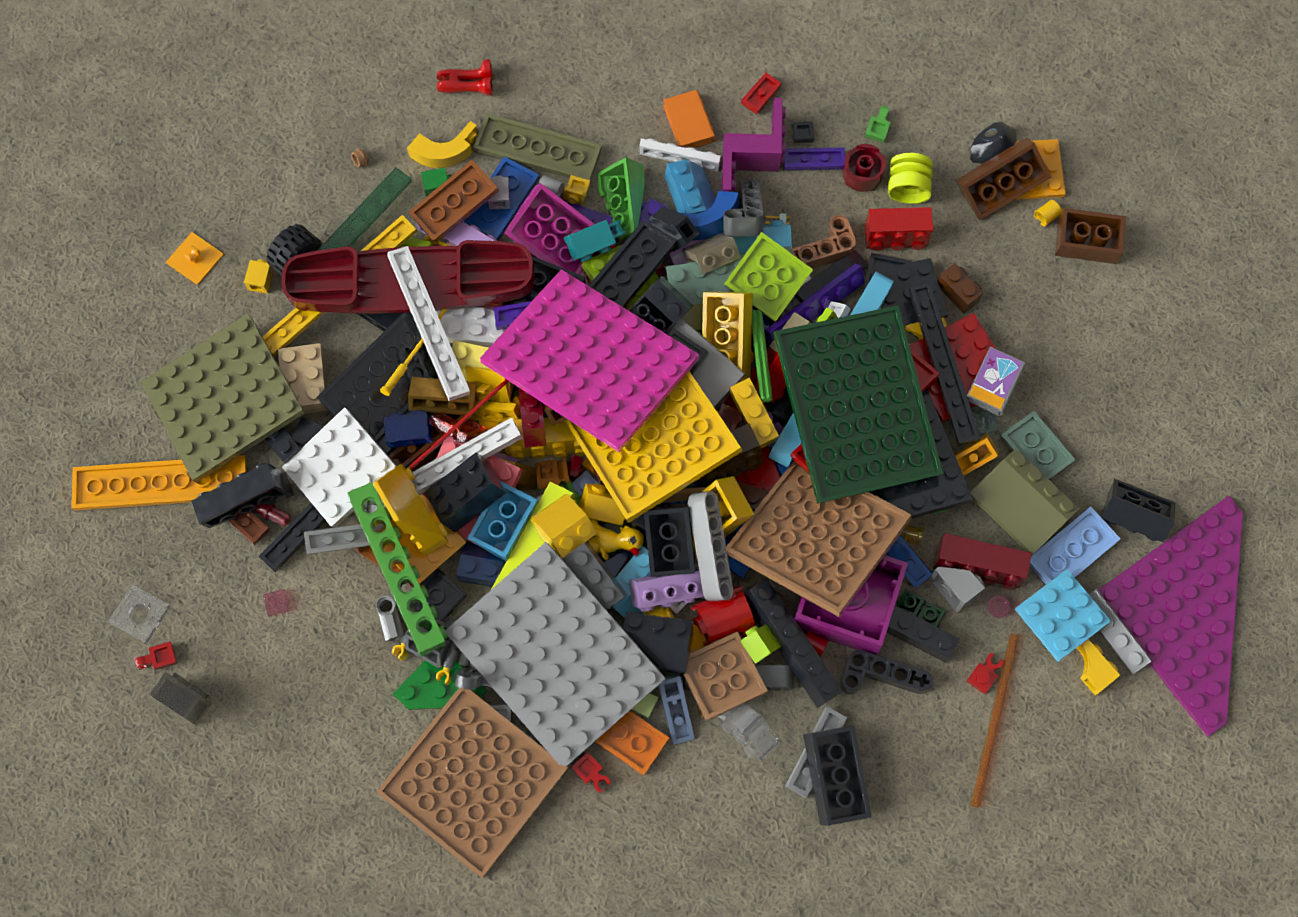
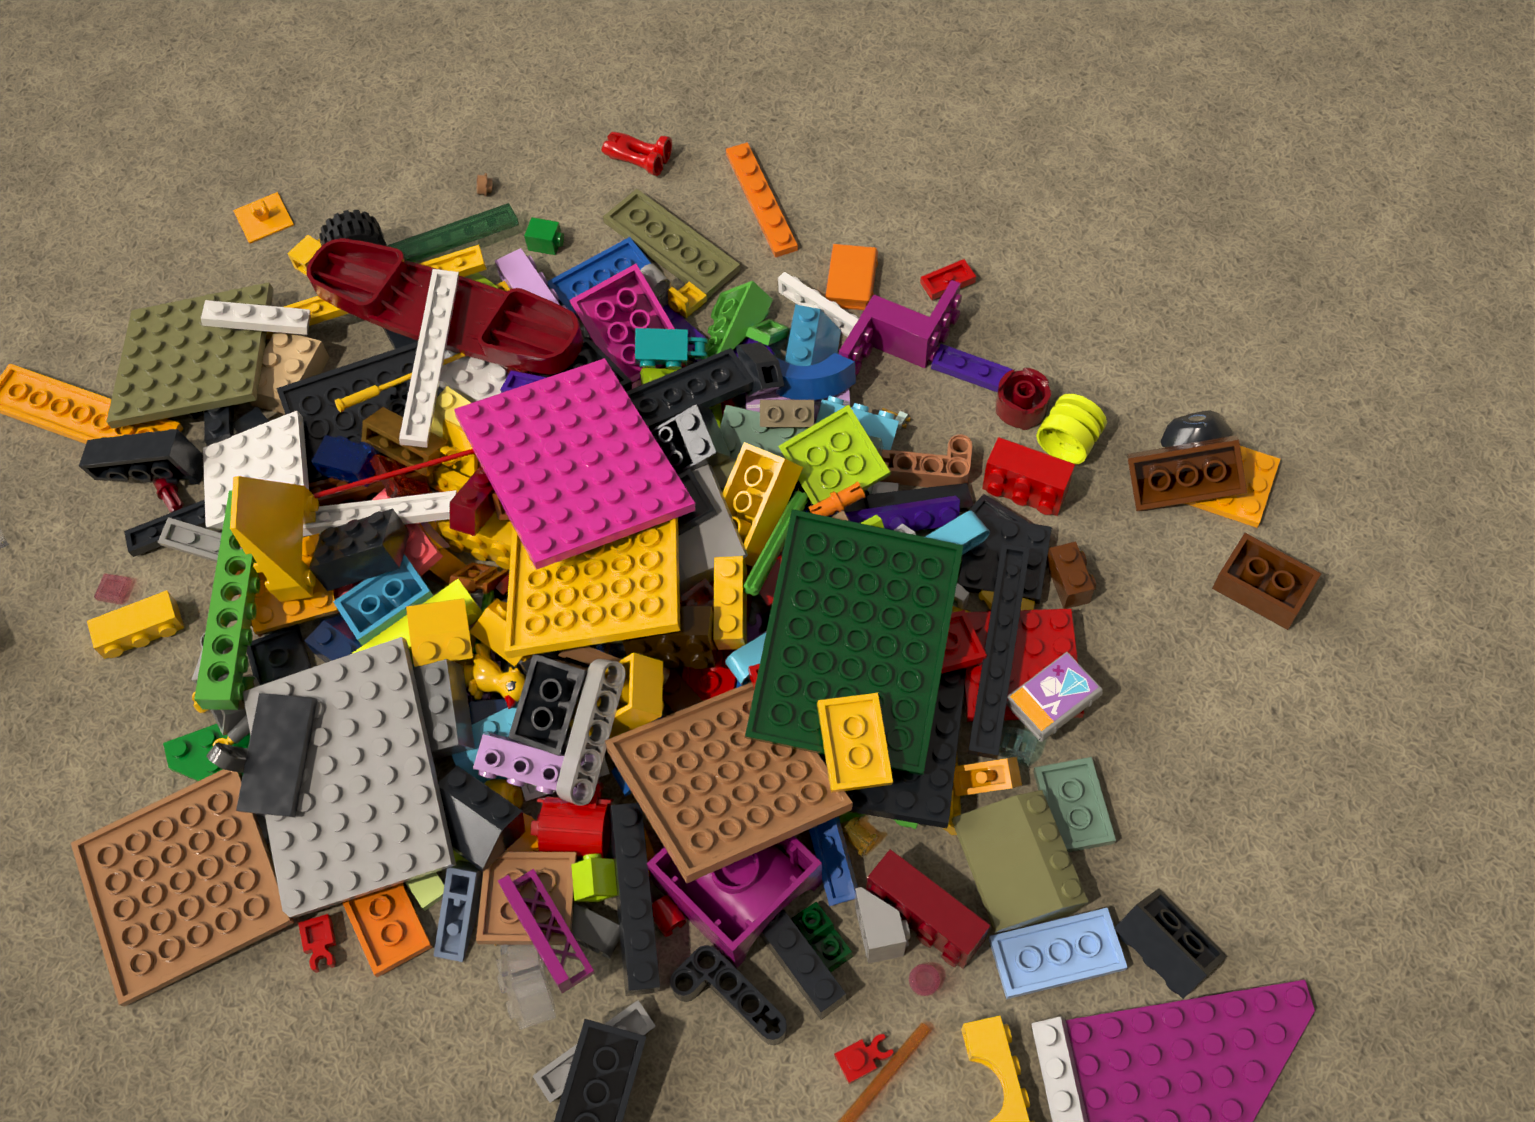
camera: 30 degrees right, 10 degrees down
(250, 527) = (137, 498): copper plate -> none
(263, 347) = (256, 317): none -> white plate
(316, 621) = (135, 625): none -> yellow brick
(443, 154) = (573, 212): yellow arch -> none
(453, 201) = (541, 253): dark orange plate -> none
(499, 663) = (276, 755): none -> black tile
(501, 199) = (597, 266): light grey brick -> none
(585, 81) = (761, 200): none -> orange plate
(654, 192) = (768, 332): none -> bright green tile
(747, 695) = (535, 934): none -> magenta fence
(750, 218) = (857, 389): dark grey beam -> none
(787, 307) = (838, 501): none -> orange pin
(803, 132) = (975, 337): black tile -> none
(878, 126) = (1066, 364): bright green plate -> none
(893, 474) = (854, 742): none -> yellow plate
(1048, 212) = (1225, 535): yellow beam -> none
(1062, 615) = (996, 1028): medium azure plate -> none

